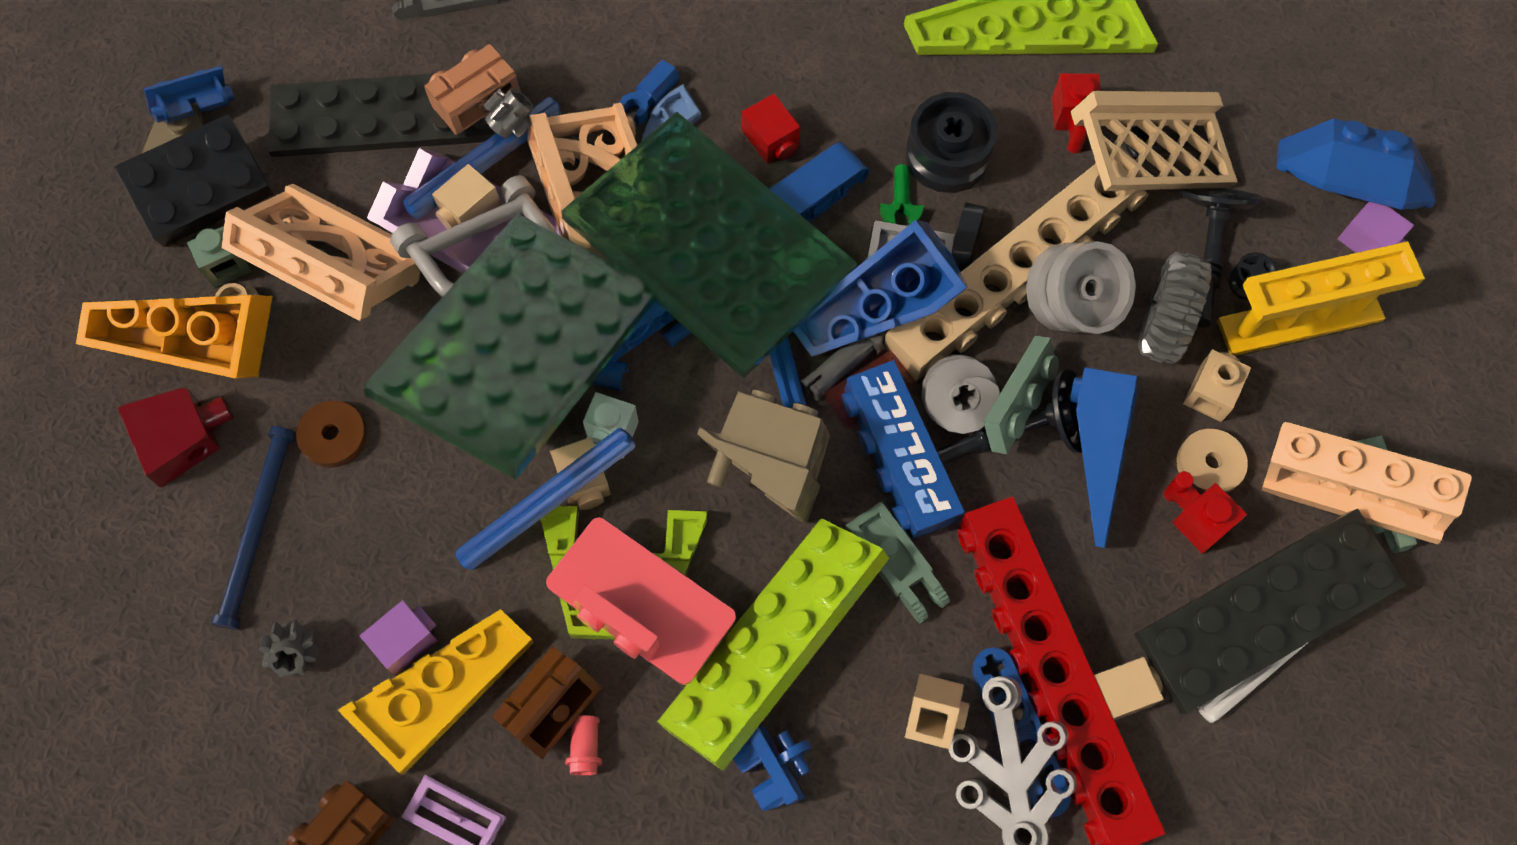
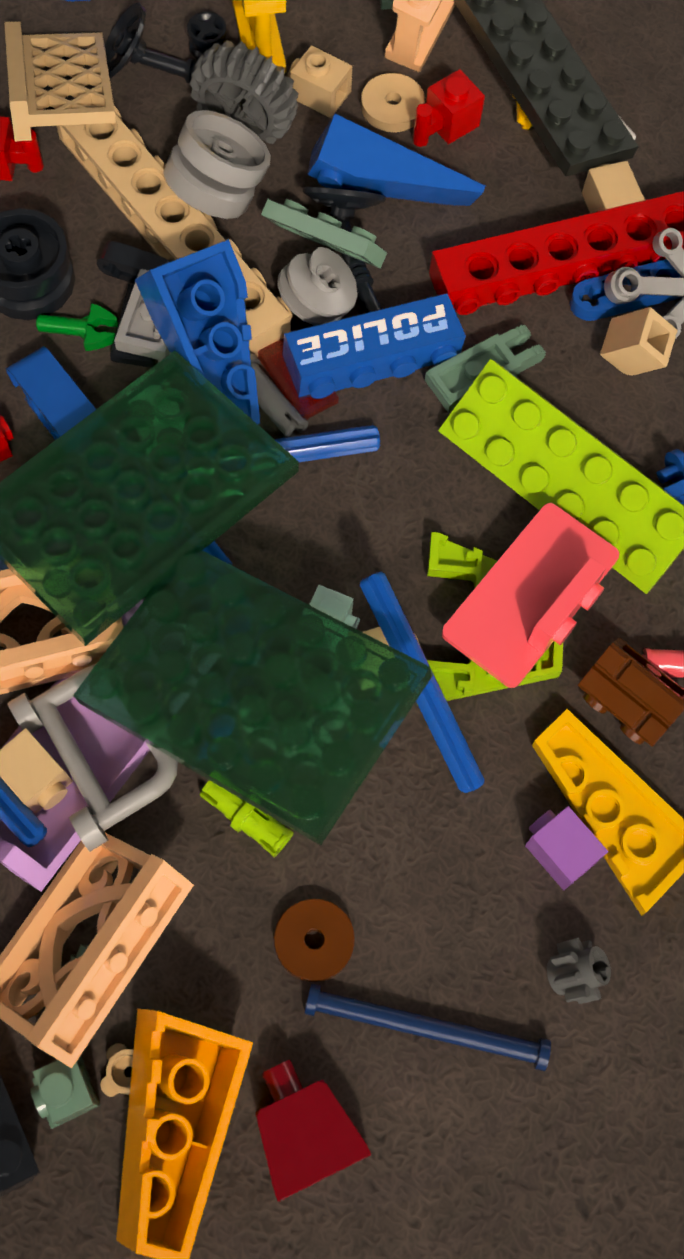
camera: 90 degrees left, 0 degrees up
(774, 447) = (384, 442): dark tan piece -> none

